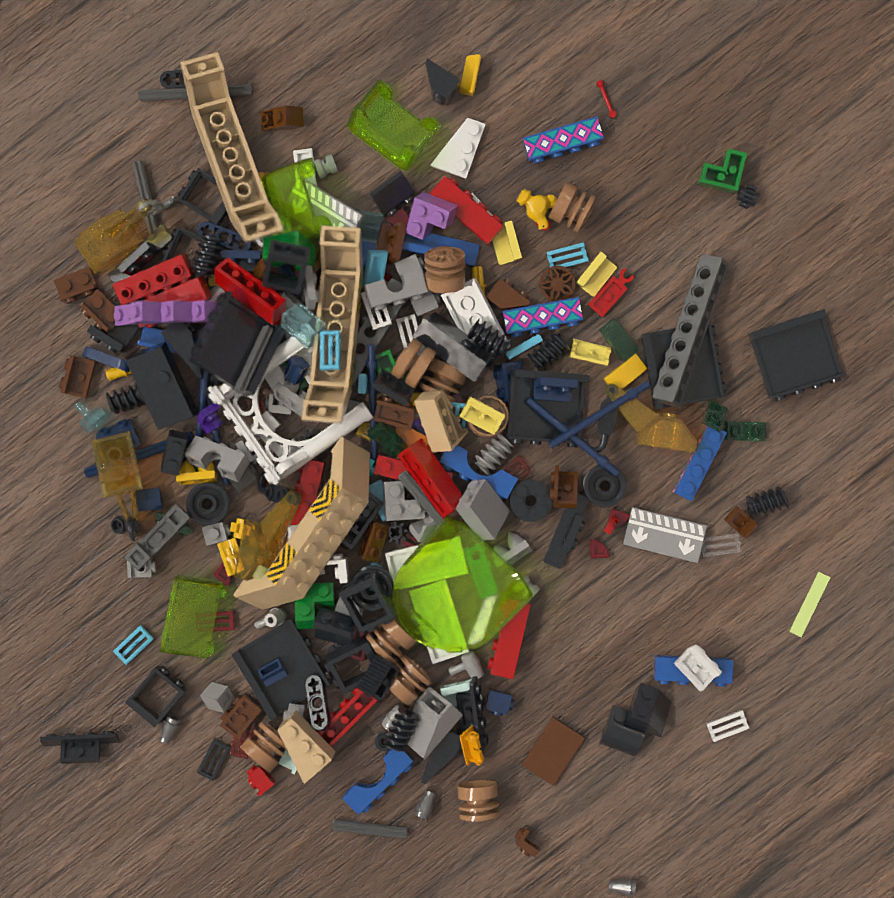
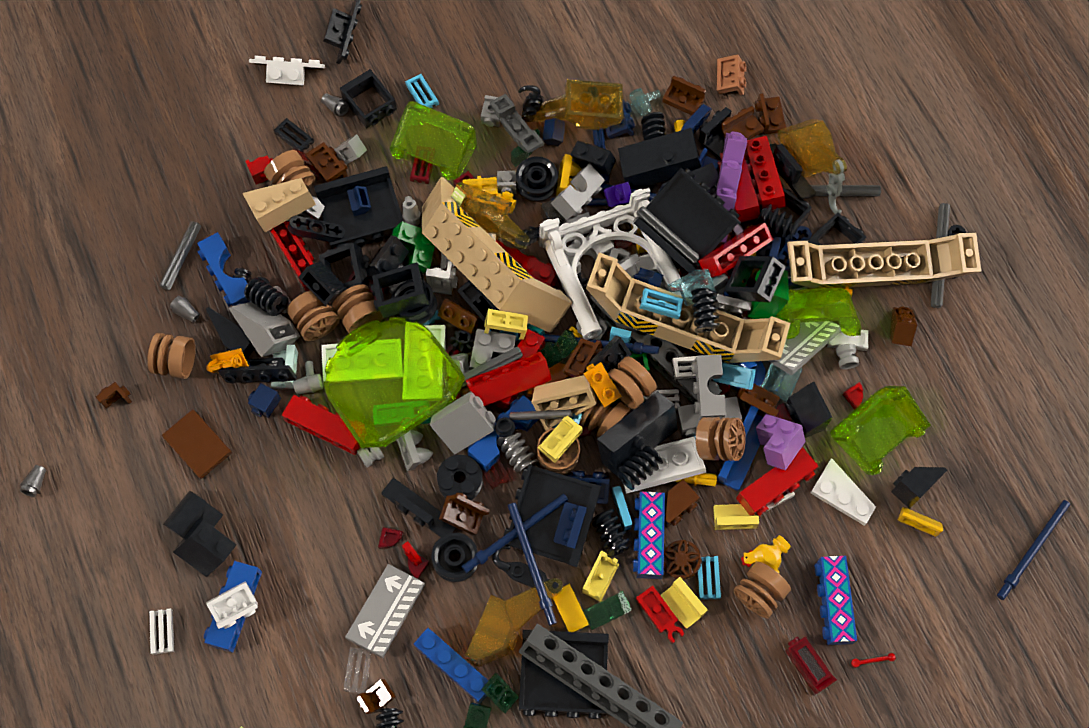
camera: 105 degrees right, 20 degrees down
(40, 333) = (731, 74): none -> nougat bracket
(142, 790) = (285, 72): none -> white bracket
(329, 307) = (704, 310): none -> black piece
(361, 153) = (854, 395): none -> red tile
(377, 493) = (506, 321): none -> light yellow hinge
(378, 762) = (239, 273): none -> black bush
(424, 389) = (602, 384): none -> light orange hinge
(460, 439) = (551, 414): none -> flat silver bar
(478, 470) = (504, 427): none -> black plate
(625, 153) = (809, 664): none -> dark red window

